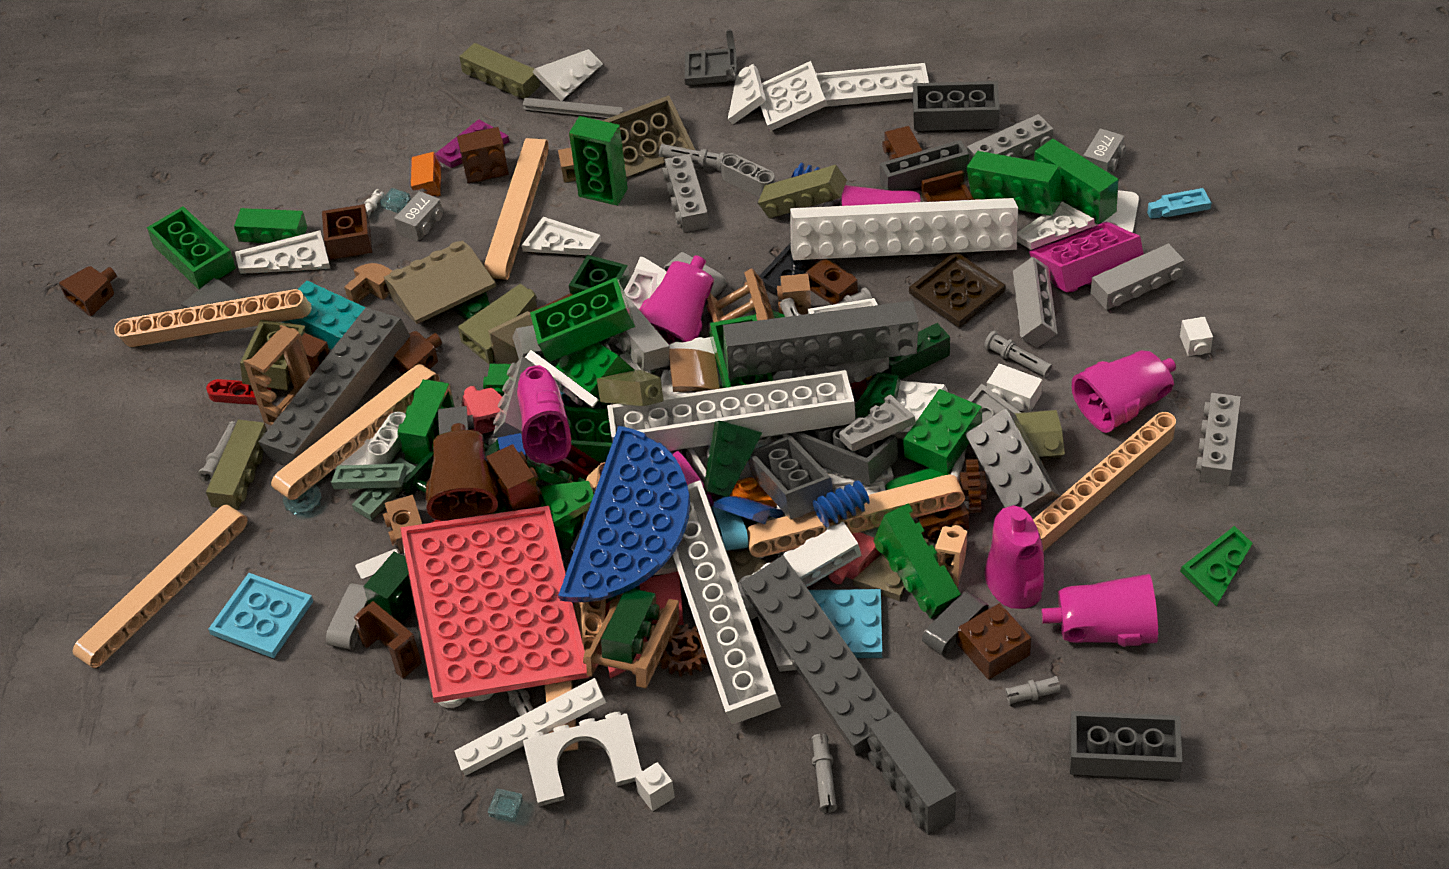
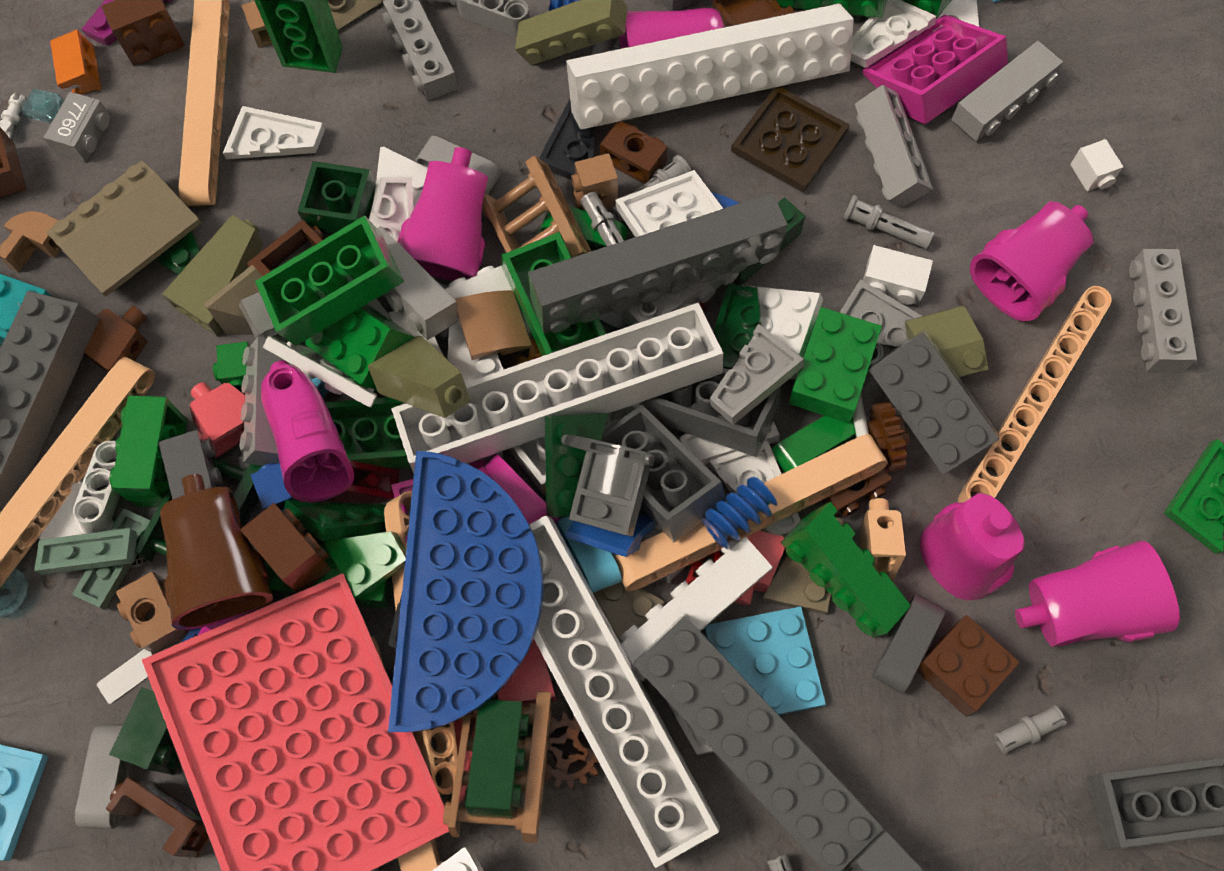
camera: 15 degrees left, 20 degrees up
(751, 471) = (609, 484): none -> dark grey piece

